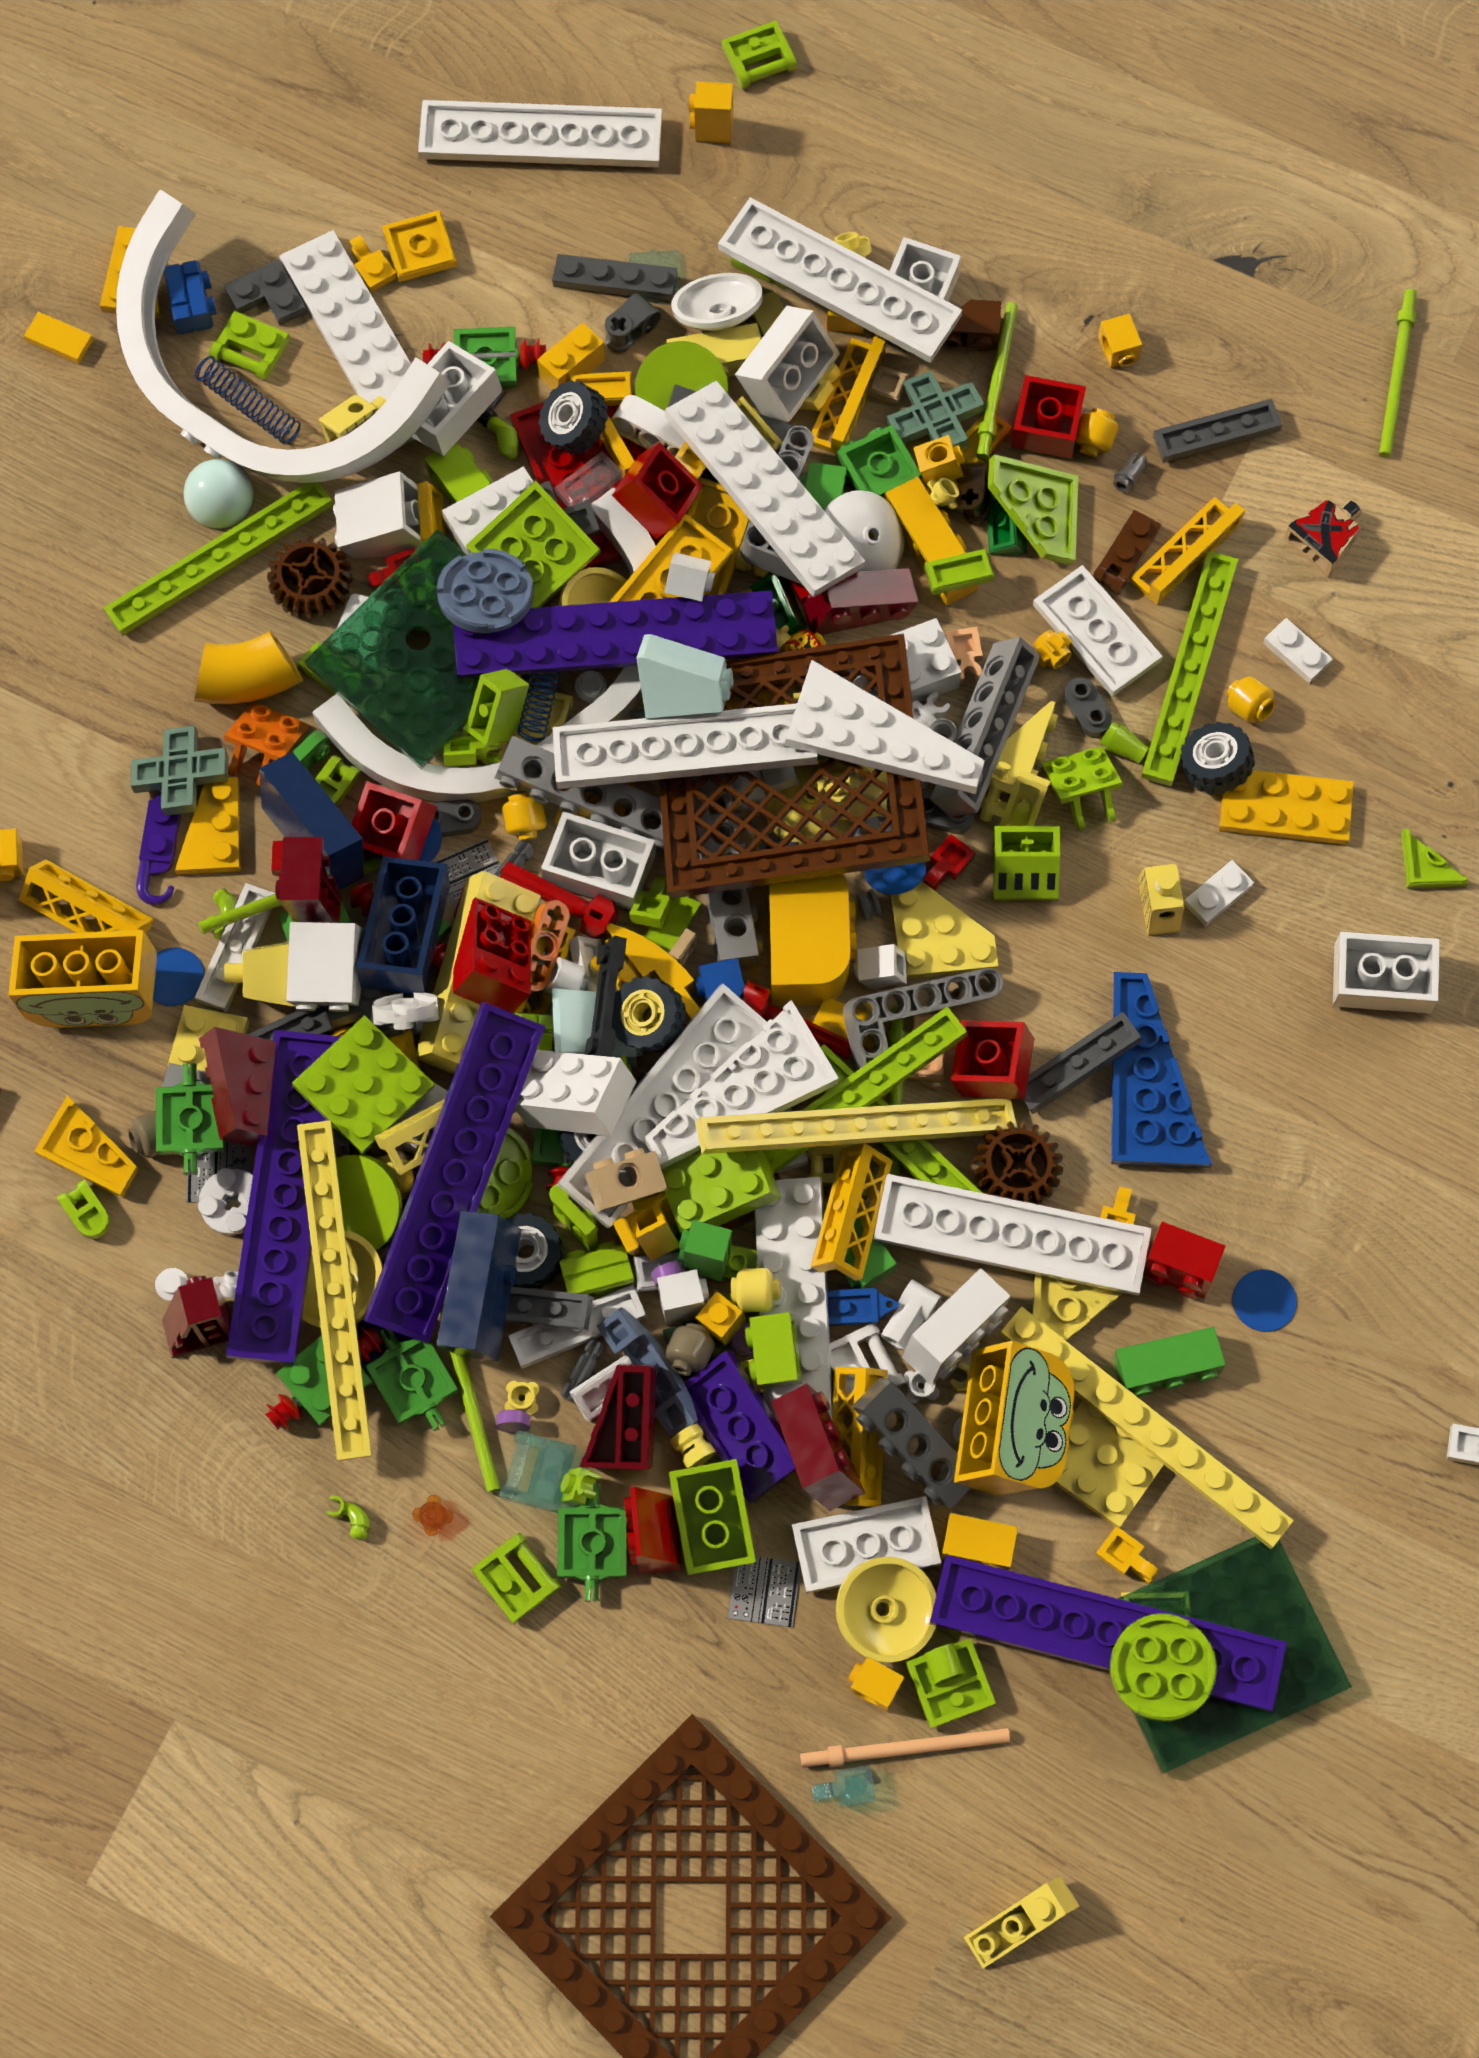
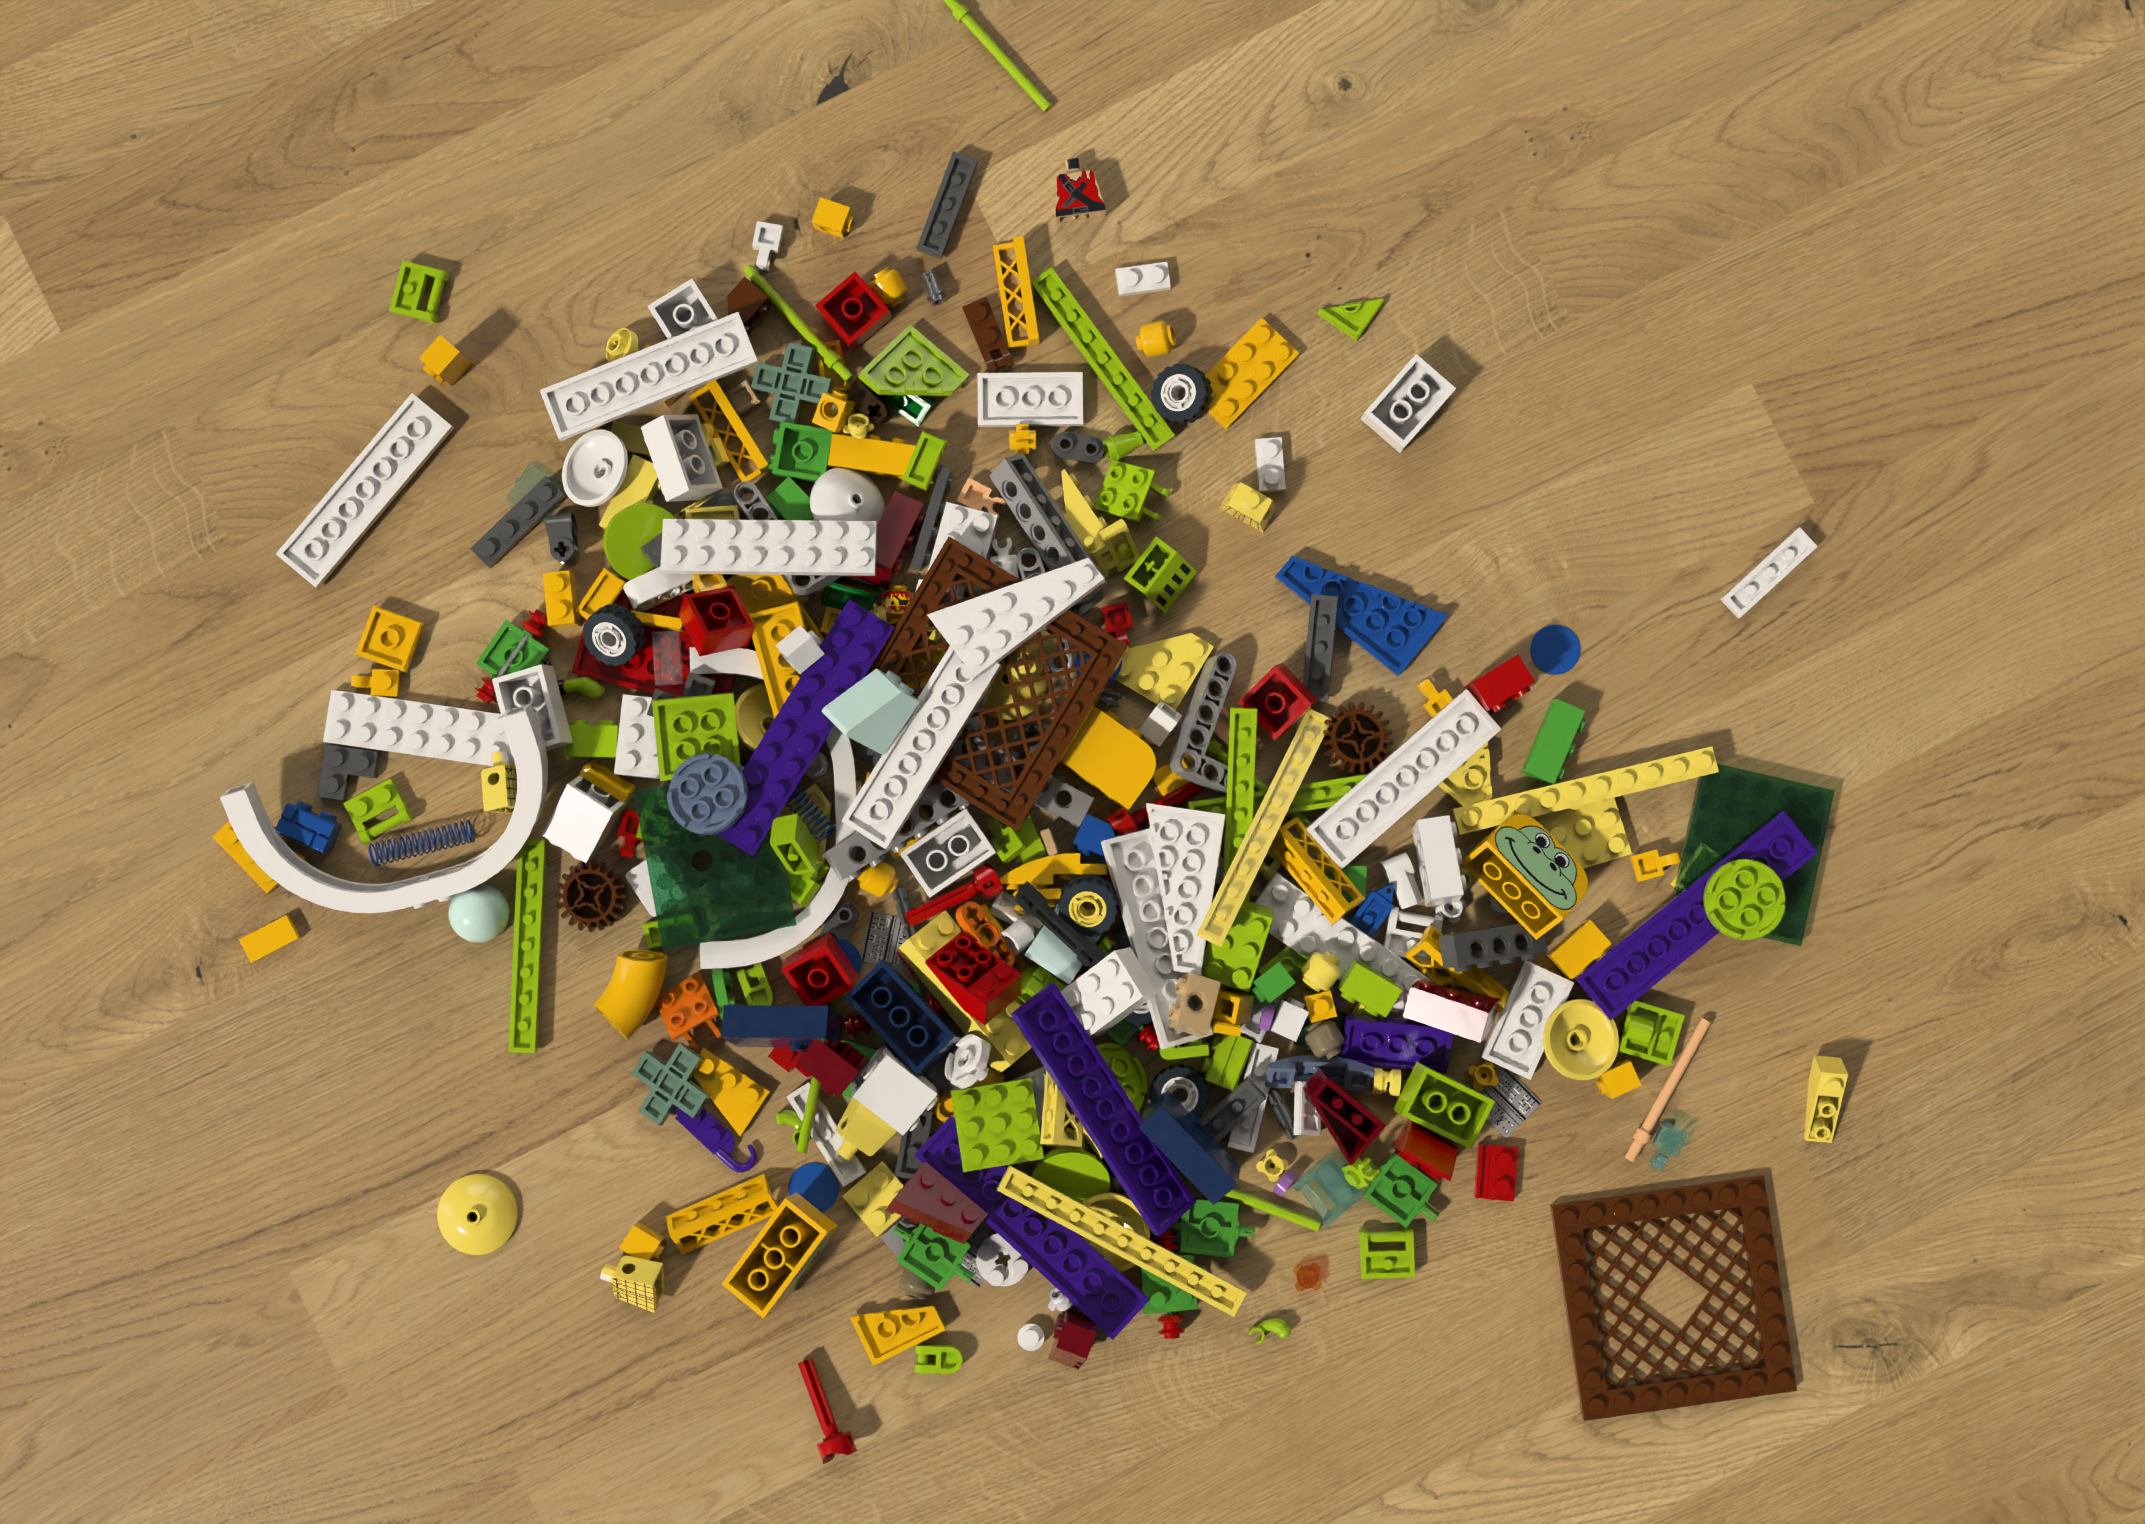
camera: 50 degrees left, 15 degrees up
(684, 1631) = (1496, 1172): none -> red plate
(783, 1540) = (1487, 1069): none -> yellow plate
(949, 608) = (929, 530): none -> dark grey plate
(1049, 301) = (766, 240): none -> white plate

